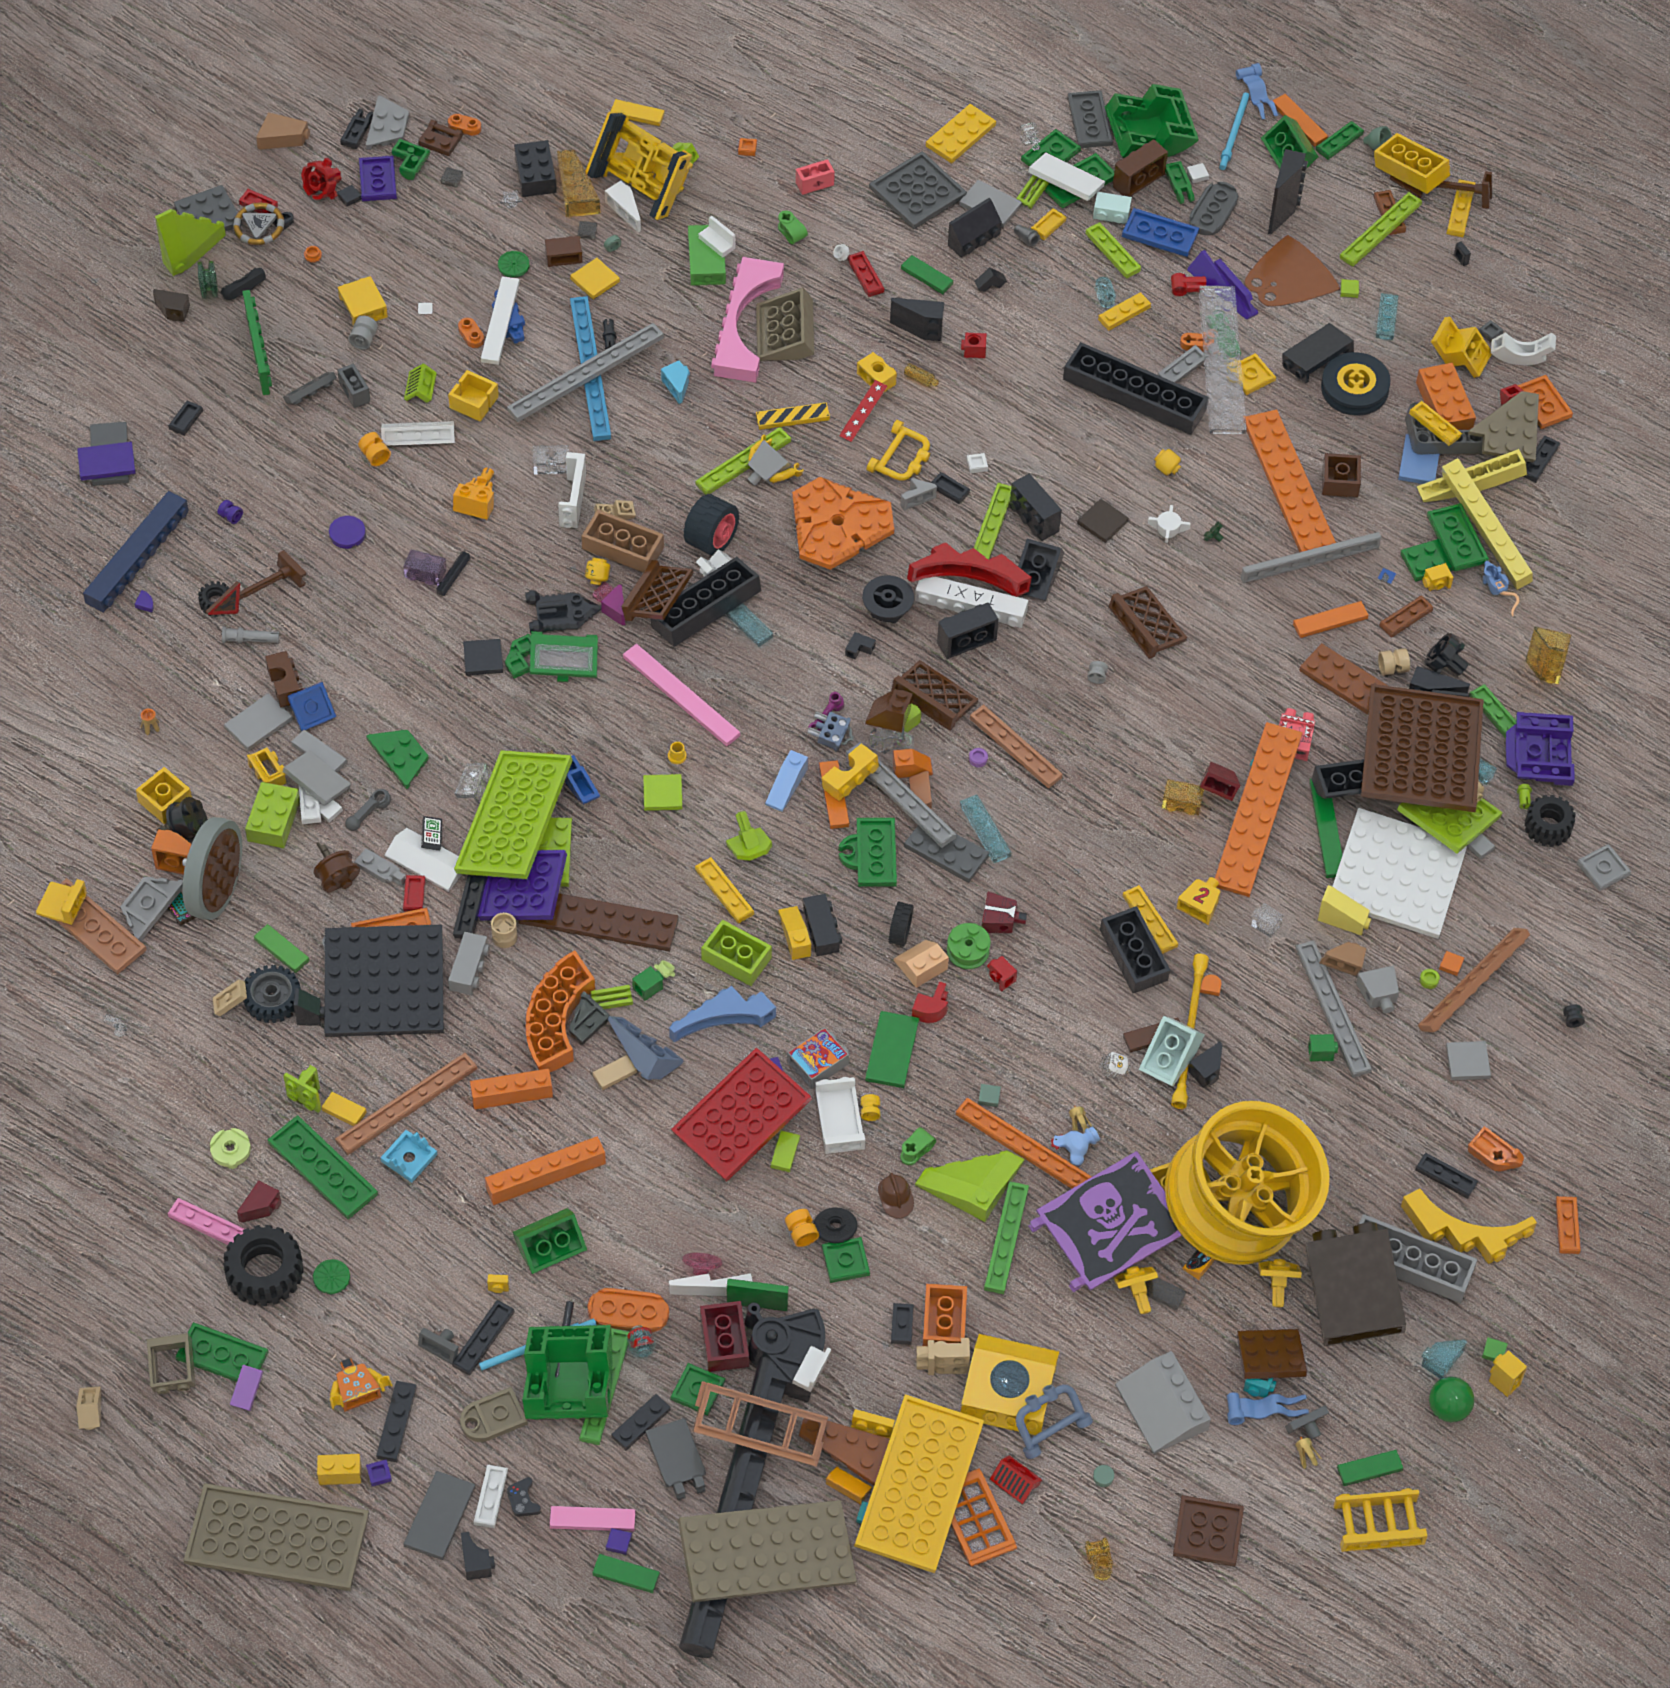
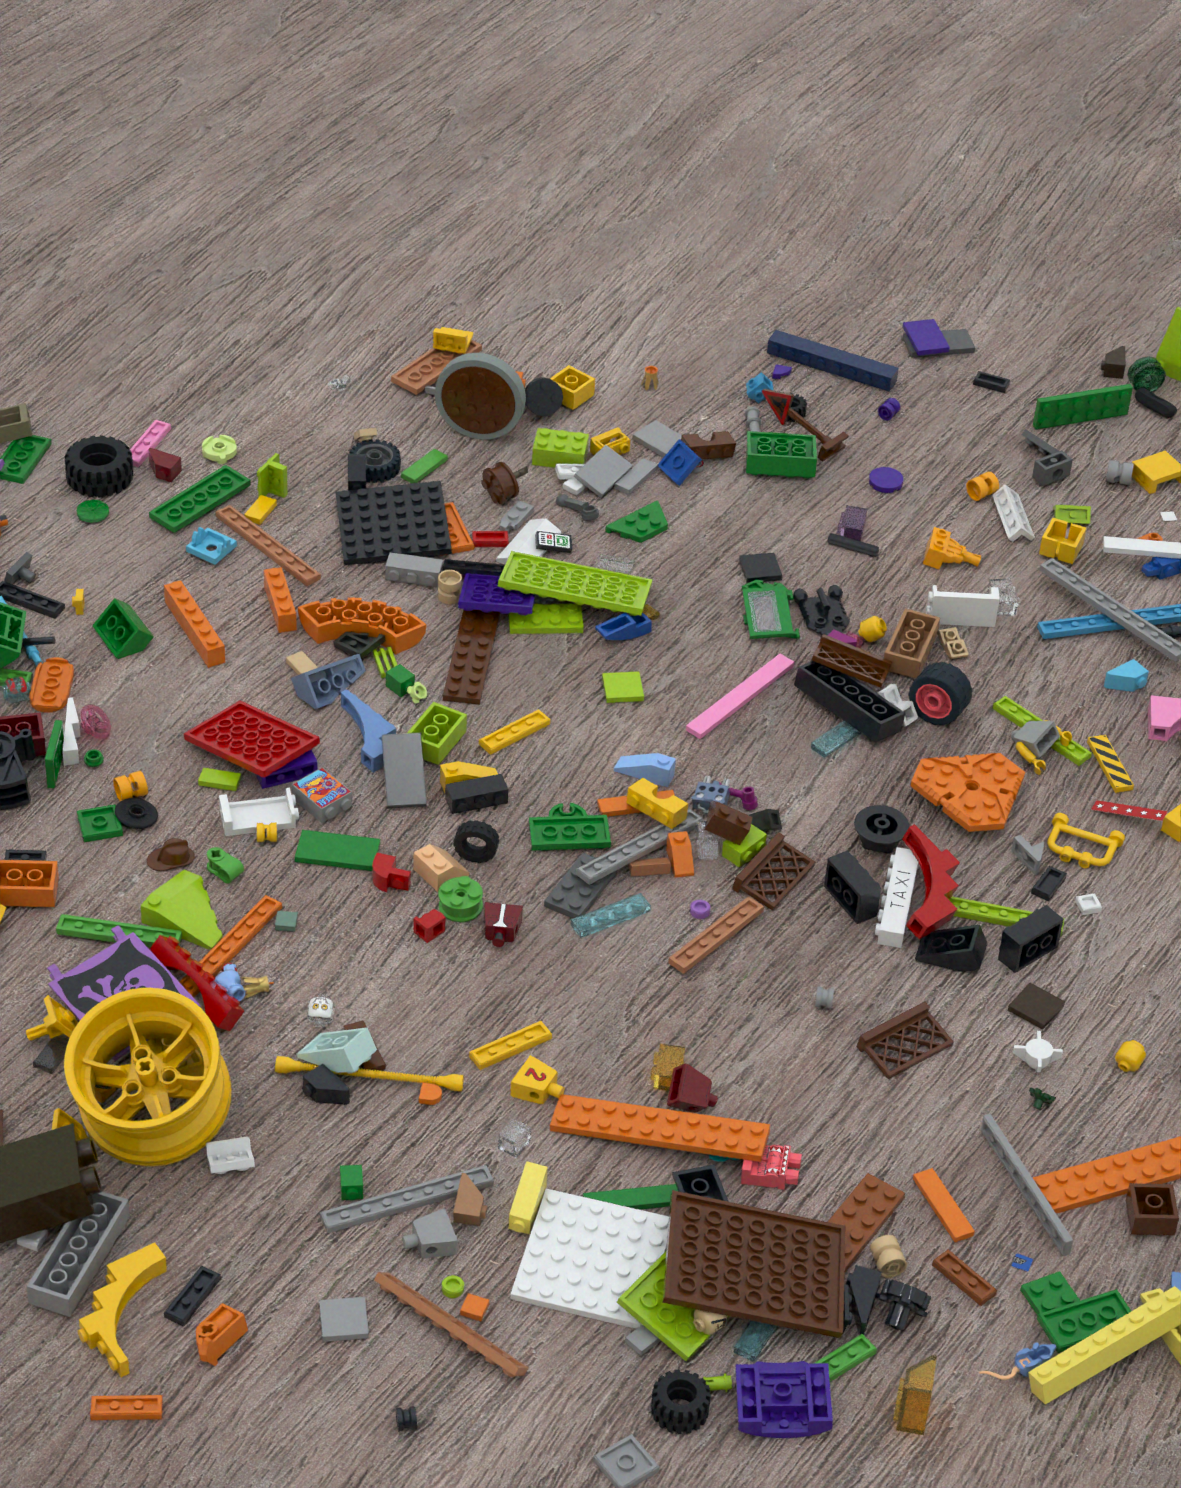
camera: 85 degrees right, 15 degrees down
(187, 615) = (756, 385): none -> dark azure brick
(303, 614) = (781, 454): none -> green slope
(677, 757) = (669, 693): yellow piece -> none
(750, 842) = (568, 740): lime piece -> none
(751, 1260) = (93, 758): none -> green plate
(793, 981) = (403, 770): none -> tile
(859, 643) = (825, 815): black piece -> none
(866, 691) = (767, 820): none -> pearl dark grey panel
(1116, 1144) = (219, 1006): none -> red arch
(1134, 949) = (463, 1023): black brick -> none
(1437, 577) = (1024, 1303): yellow brick -> none

